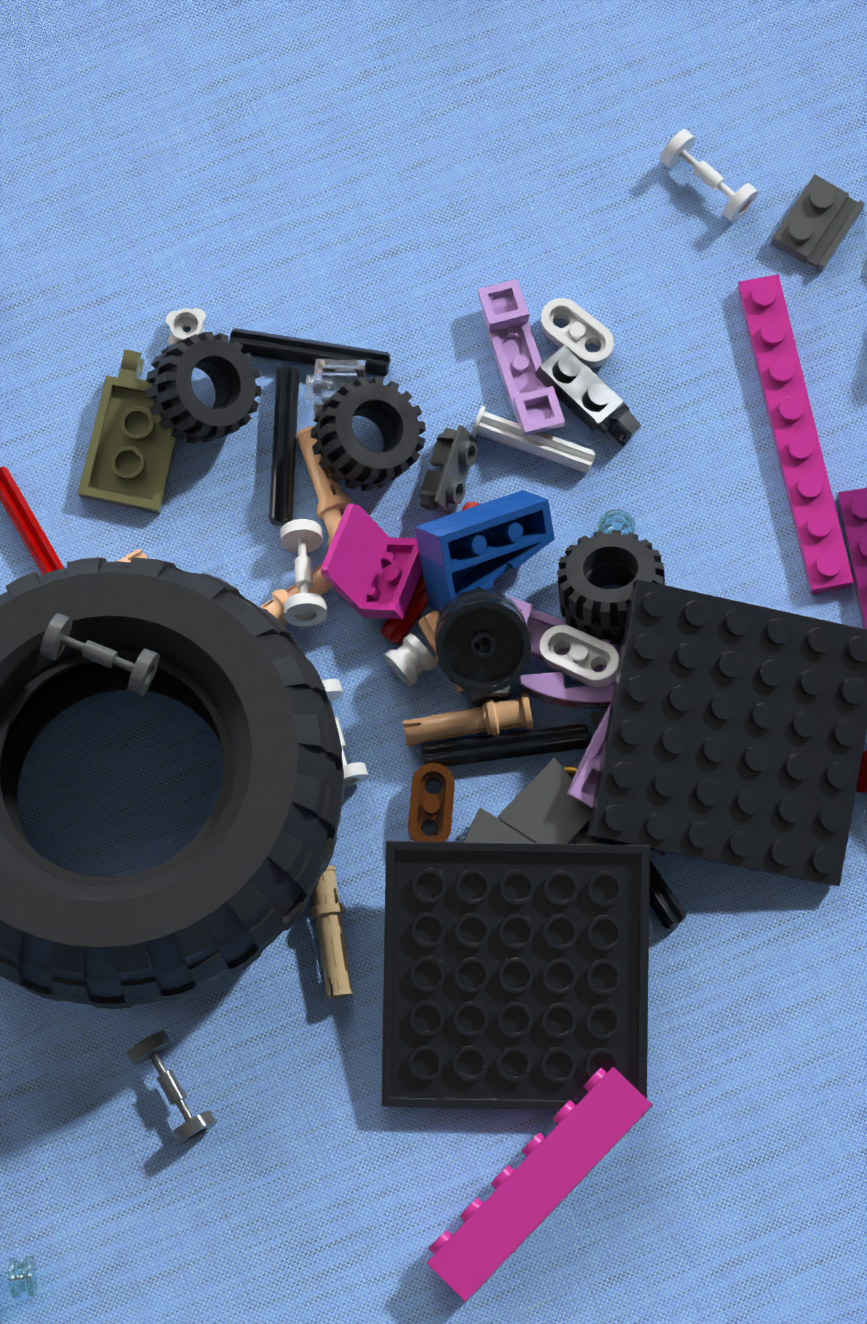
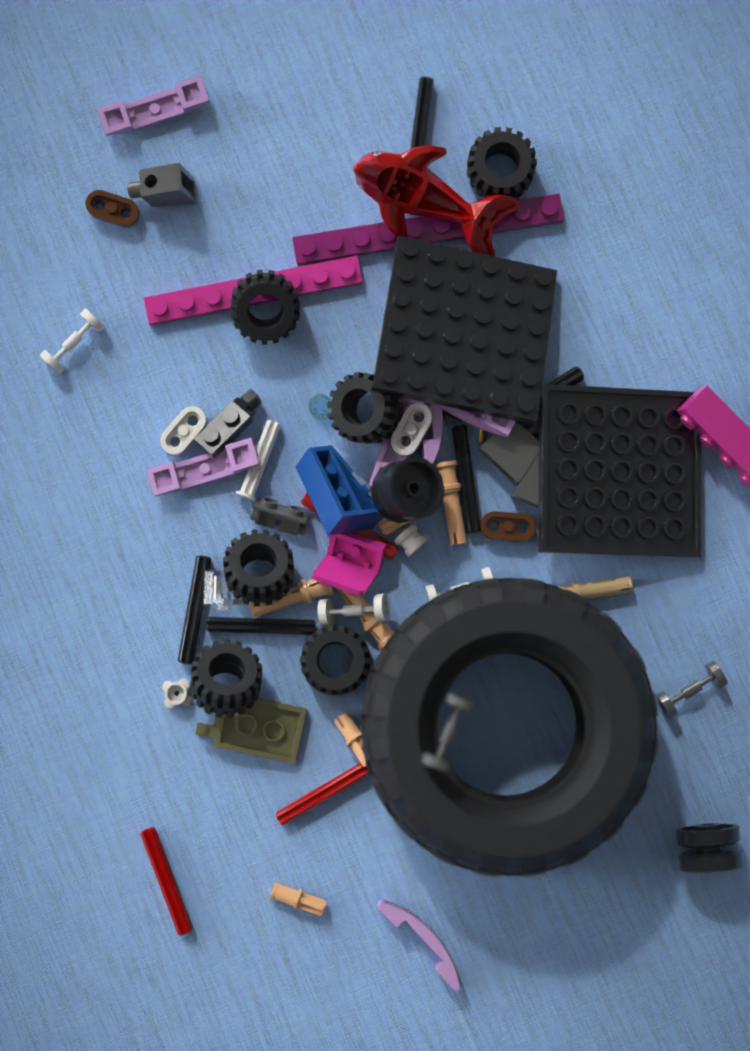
camera: 90 degrees left, 10 degrees up
(231, 515) = (310, 660): none -> black tyre
(737, 426) = (271, 328): none -> black tyre
(817, 223) = (106, 271): dark grey plate -> none

